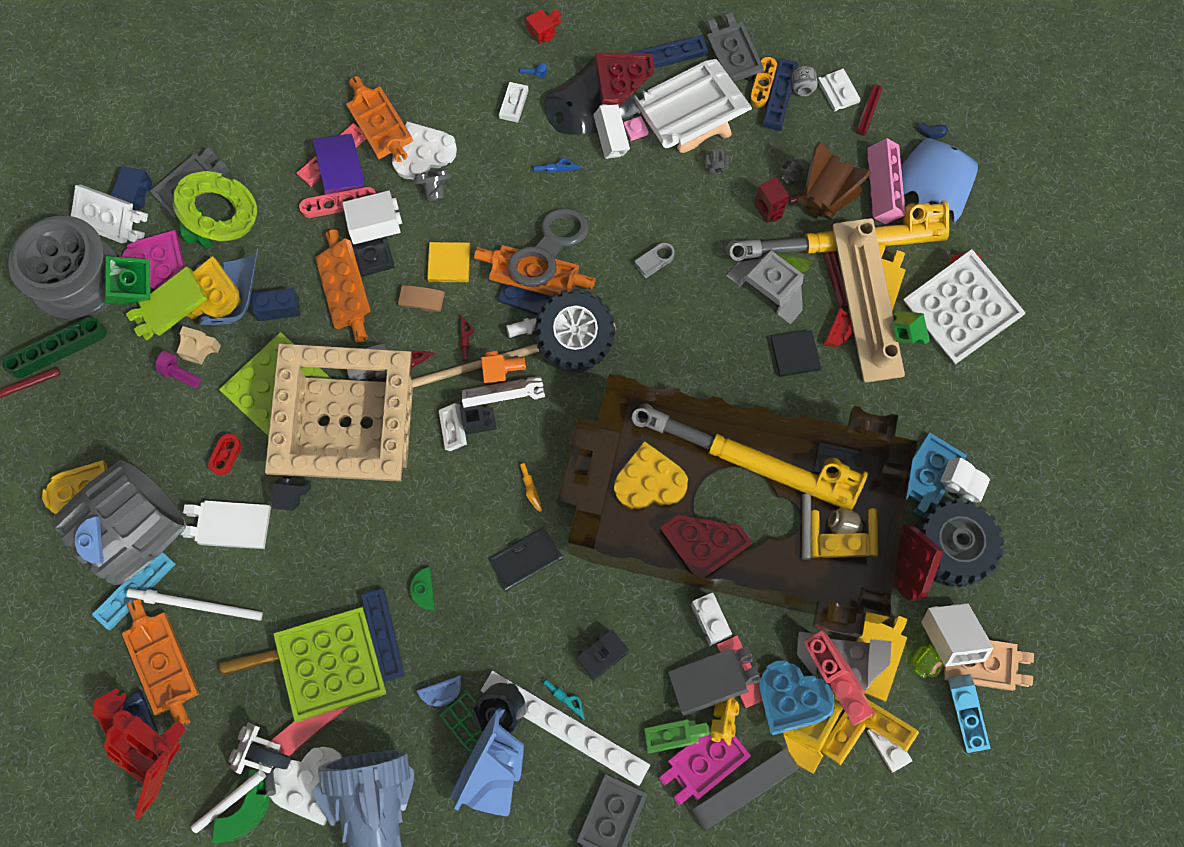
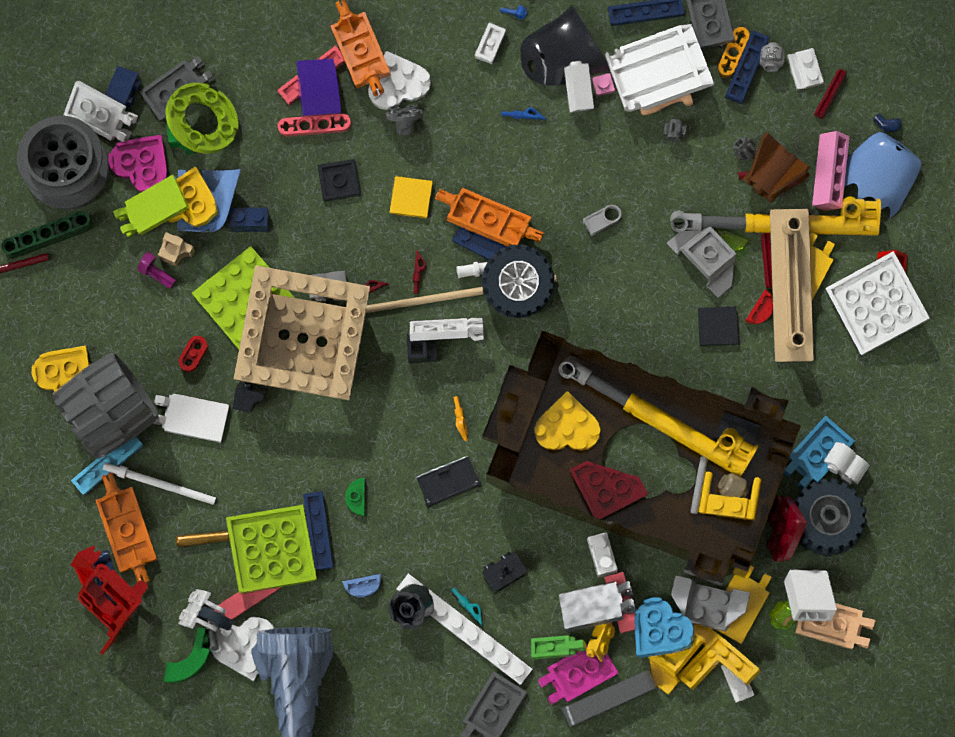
camera: 10 degrees right, 5 degrees up
(89, 541) = (87, 421): medium blue plate -> none
(126, 280) = (117, 181): green slope -> none
(228, 801) = (178, 650): white bar -> none
(343, 285) = (312, 208): orange plate -> none
(372, 217) = (345, 145): white brick -> none
(421, 297) = (382, 230): medium nougat slope -> none
(452, 427) = (397, 355): white plate -> none
(460, 721) = (376, 614): green window -> none
(490, 771) = (398, 653): medium blue piece -> none
(496, 366) = (443, 306): orange brick -> none
(548, 247) = (505, 196): dark grey bar -> none
(621, 74) = (596, 32): dark red plate -> none
(771, 200) = (718, 177): dark red brick -> none
(840, 677) = (702, 615): coral slope -> none
(910, 327) = (824, 317): green brick -> none
(969, 713) = (809, 662): medium azure slope -> none

